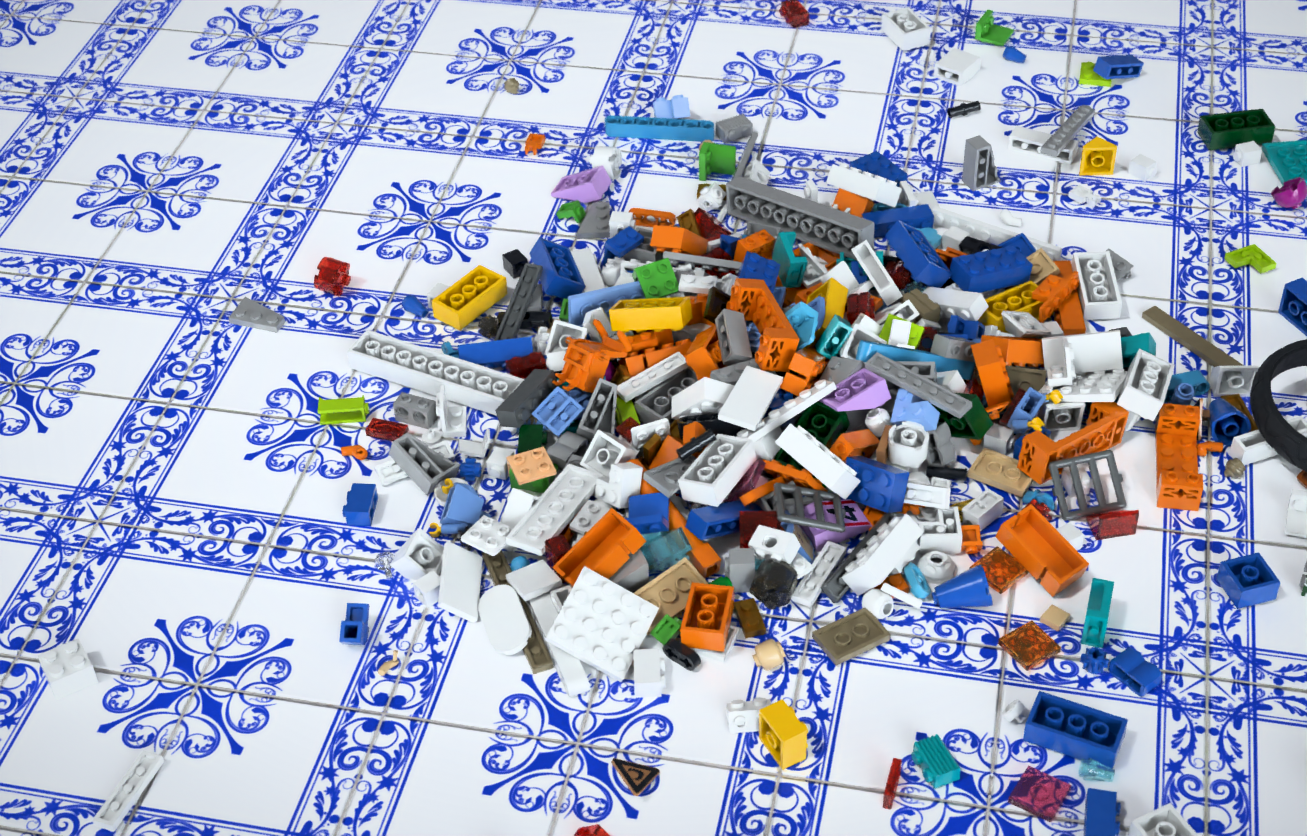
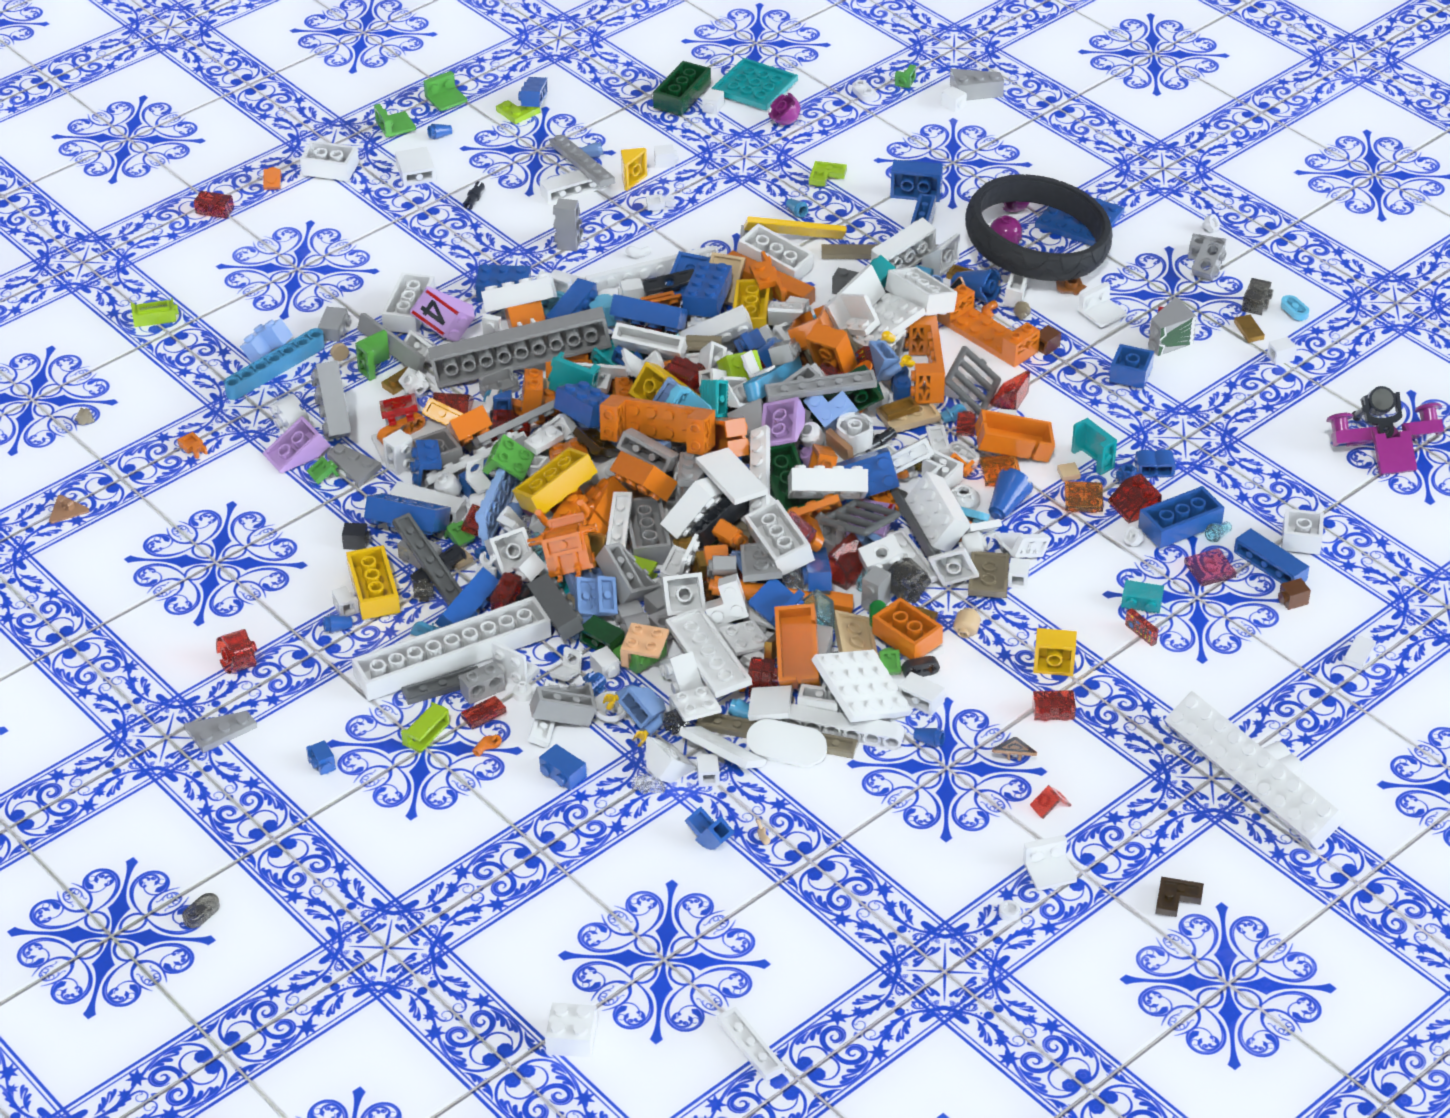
camera: 55 degrees left, 0 degrees up
(63, 407) = (199, 911): none -> clear smoke plate
(264, 377) = (321, 757): none -> blue brick
(391, 389) = (434, 687): none -> dark grey tile
(416, 132) = (66, 509): none -> medium nougat piece
(600, 710) = (931, 736): none -> blue cone
(624, 428) = (662, 567): clear red tile -> none
(630, 160) = (331, 399): none -> light grey brick
(649, 53) = (154, 313): none -> lime window
(650, 455) = (721, 566): none -> light grey brick
(668, 203) = (397, 407): none -> red tile
(696, 444) = (745, 532): black pin -> none
(719, 774) = (1053, 705): none -> clear red brick
(744, 715) = (1012, 662): white bracket -> none
(793, 164) = (443, 313): none -> lavender slope
(796, 146) = (407, 290): none -> white brick
(823, 602) = (953, 566): none -> white slope
(856, 18) = (272, 179): none -> orange bracket
(873, 655) = (1018, 573): none -> white brick
(909, 635) = (1023, 545): none -> white bracket
(989, 531) = (964, 452): none -> white plate
(996, 461) = (899, 408): none -> pearl gold tile
(1059, 31) = (442, 91): none -> bright green bracket
(1069, 680) = (1132, 496): none -> clear red slope
(1097, 131) = (593, 149): none -> medium blue cone
(1146, 278) = (797, 227): none -> yellow tile
(1182, 267) = (797, 207): none -> dark azure cone
(1199, 348) = (908, 245): none -> white brick
(1214, 505) = (1049, 340): none -> reddish brown brick
(1268, 339) = (924, 208): none -> blue brick

